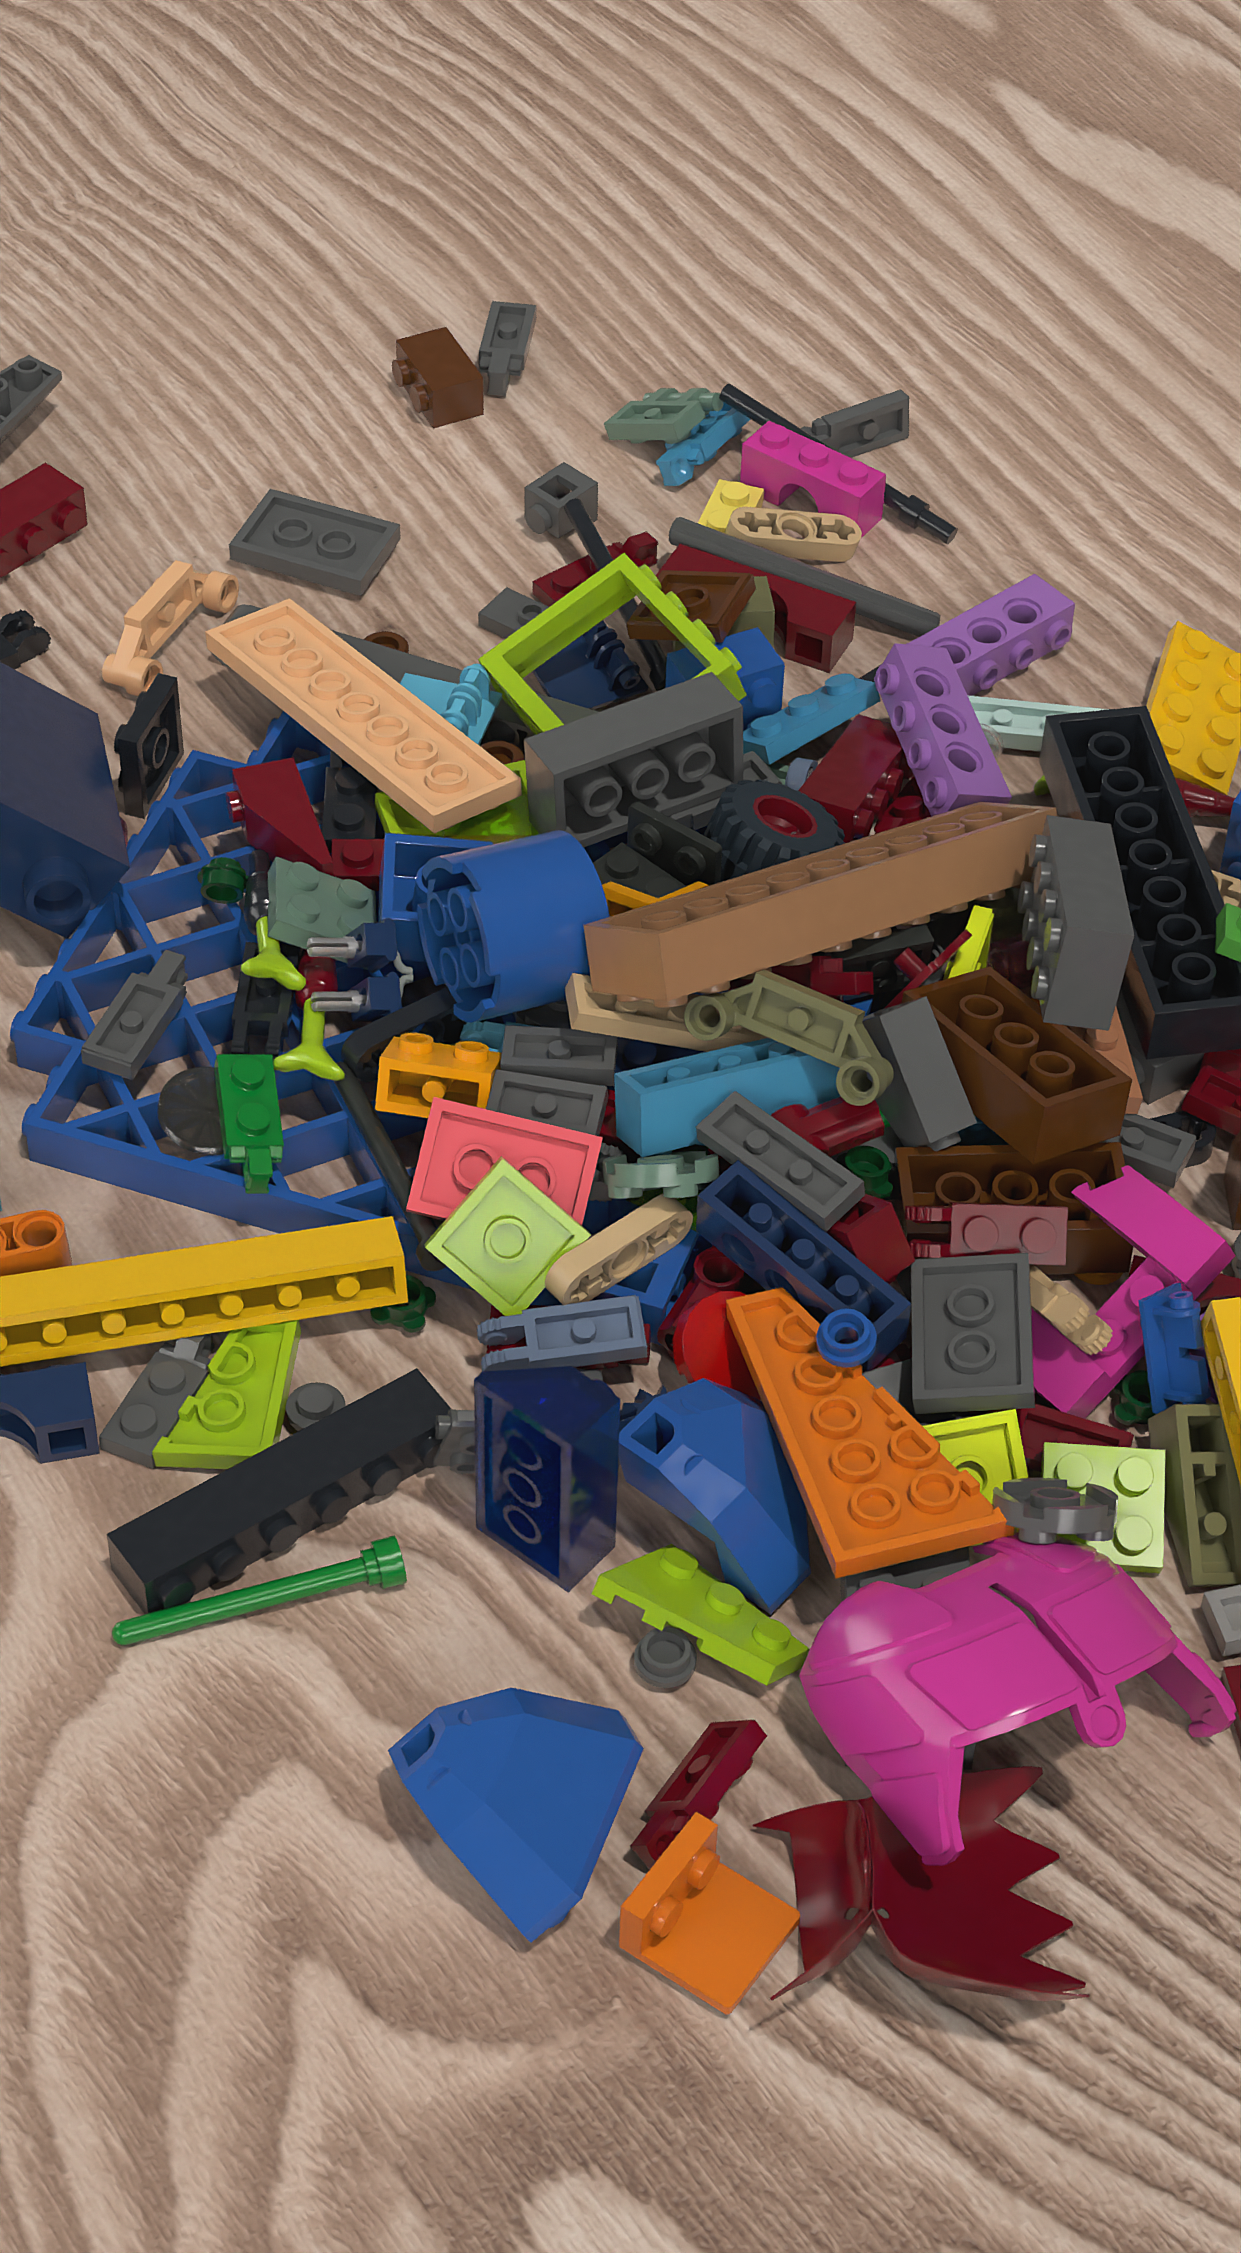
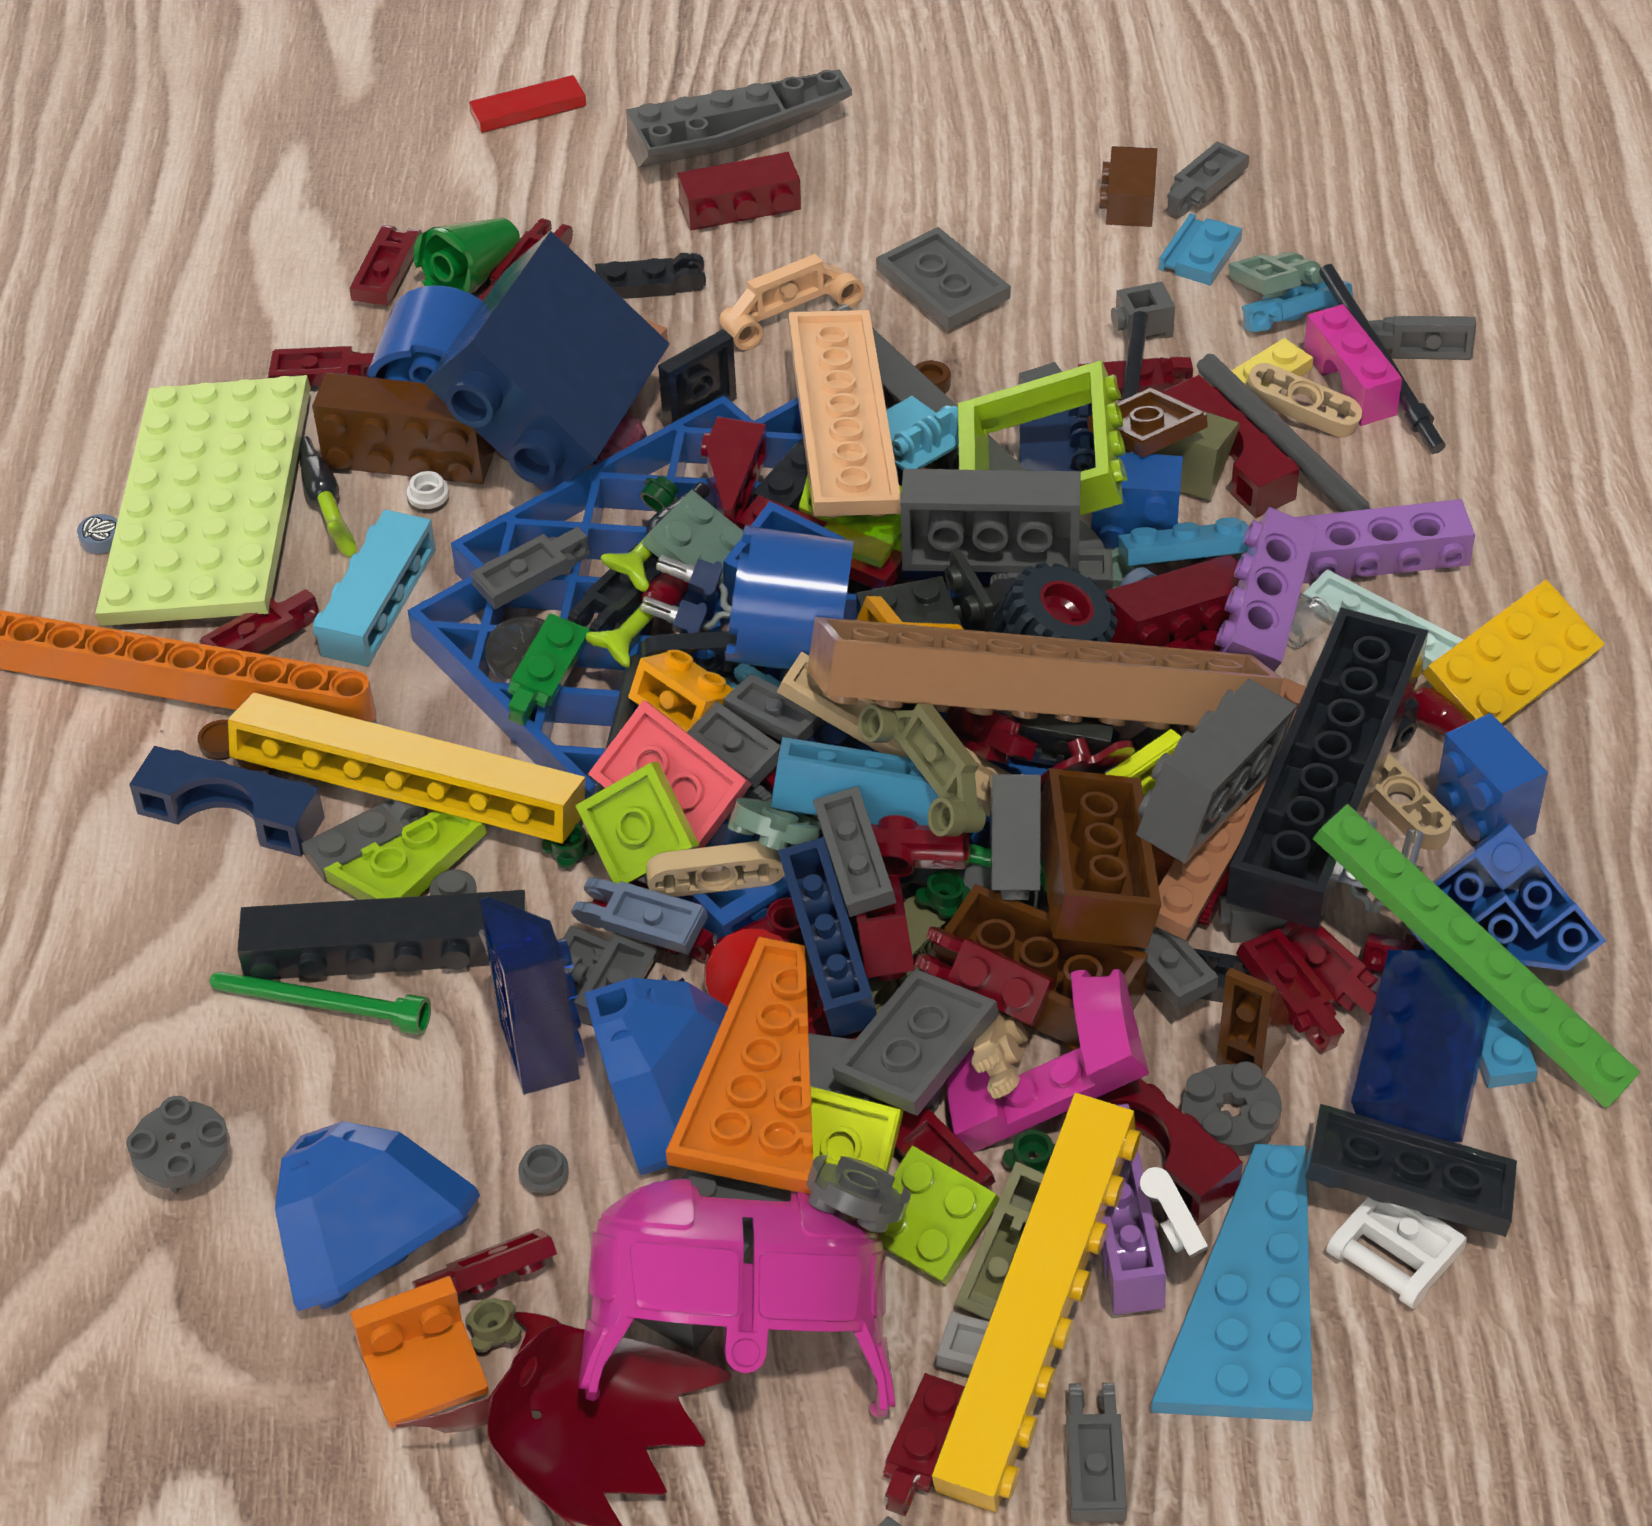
camera: 35 degrees right, 0 degrees up
(251, 1802) = (191, 1127): none -> dark grey plate
(557, 419) = (1200, 249): none -> dark azure plate
(690, 1598) = (587, 1141): lime wing -> none
(751, 1831) = (488, 1314): none -> olive plate
(842, 1325) = (805, 989): blue plate -> none
(1169, 1330) = (1048, 1110): blue hinge -> none

